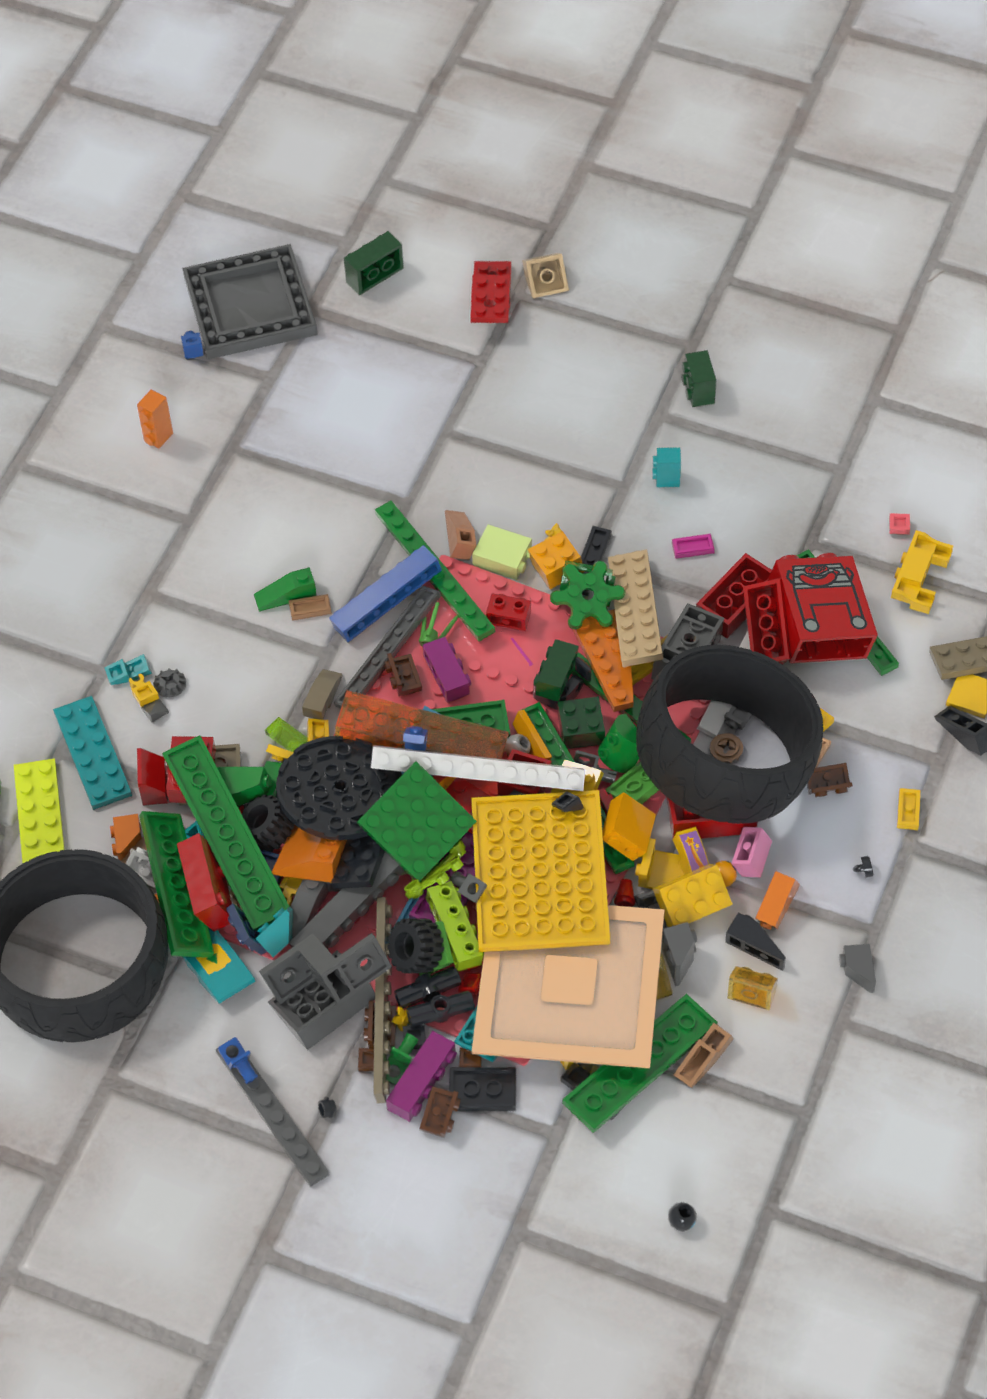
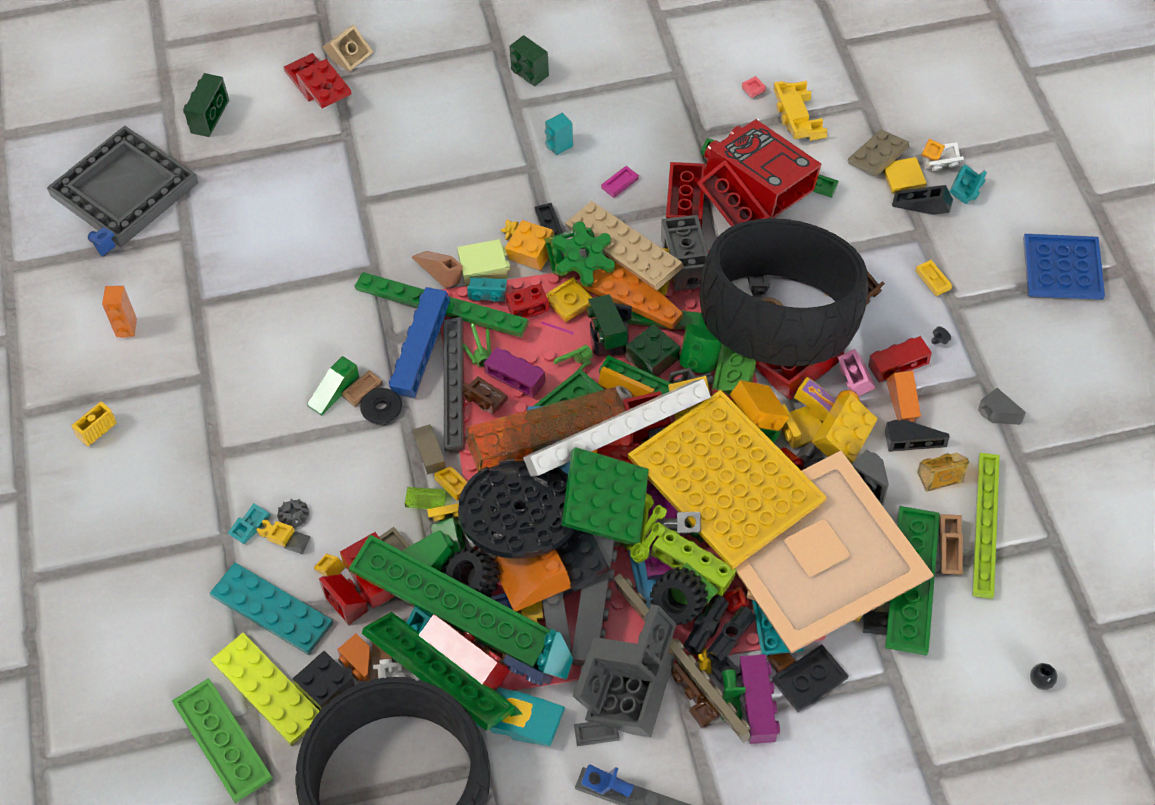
camera: 35 degrees left, 0 degrees up
(66, 508) = (94, 424): none -> yellow brick
(84, 832) = (322, 680): none -> black brick
(162, 744) = (329, 565): none -> yellow slope
(267, 1018) = (594, 733): none -> dark grey tile
(313, 642) = (381, 395): none -> black wheel
(327, 1107) = (704, 773): black plate -> none
(415, 738) = (555, 431): blue bracket -> none
(439, 1112) = (798, 717): reddish brown bracket -> none
(484, 579) = (487, 289): none -> teal bracket
(517, 688) = (581, 355): none -> bright green plant
(547, 628) = (568, 299): none -> yellow tile
(568, 802) = (707, 412): black slope -> none
(751, 1059) = (986, 526): none -> lime plate
(807, 864) = (899, 358): none -> red brick

